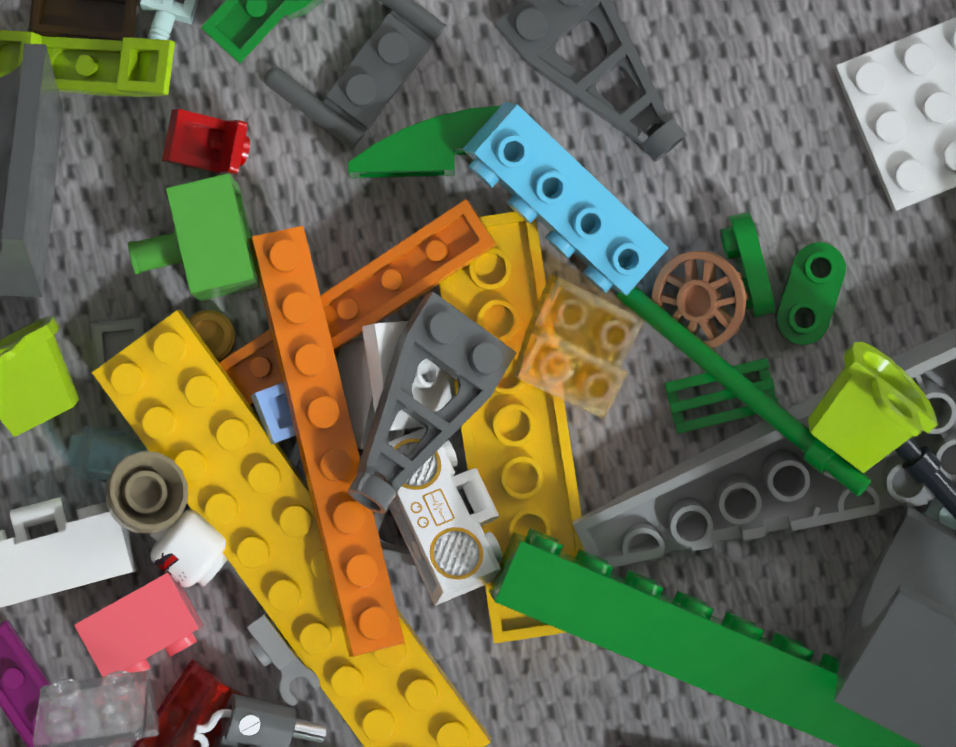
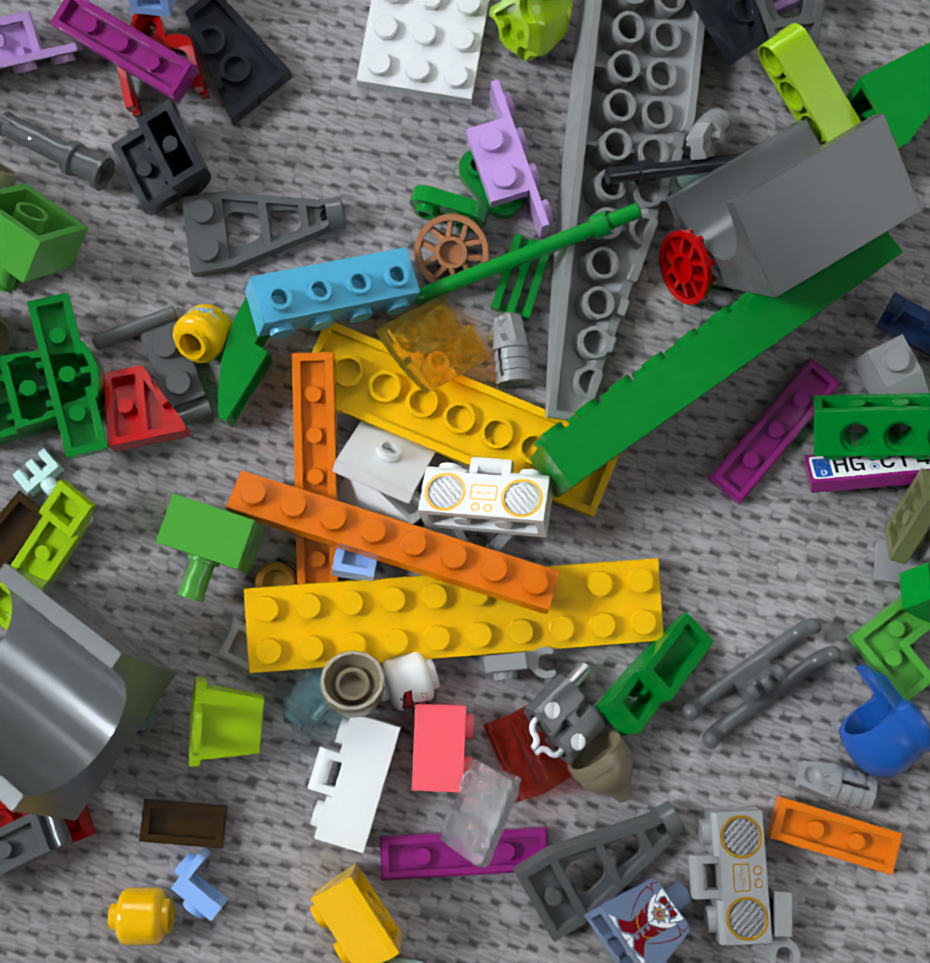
camera: 65 degrees left, 5 degrees down
(206, 142) = (145, 505): red bracket -> none
(303, 67) = (138, 411): none -> red wing
(431, 82) = (202, 333): none -> yellow head
(458, 348) = (391, 416): dark grey plate -> none
(626, 436) = (511, 352): none -> light grey hinge
(838, 294) = (502, 162): none -> lavender bracket
(844, 578) = (686, 259): none -> red wheel
(870, 408) = (592, 175): lime container -> none

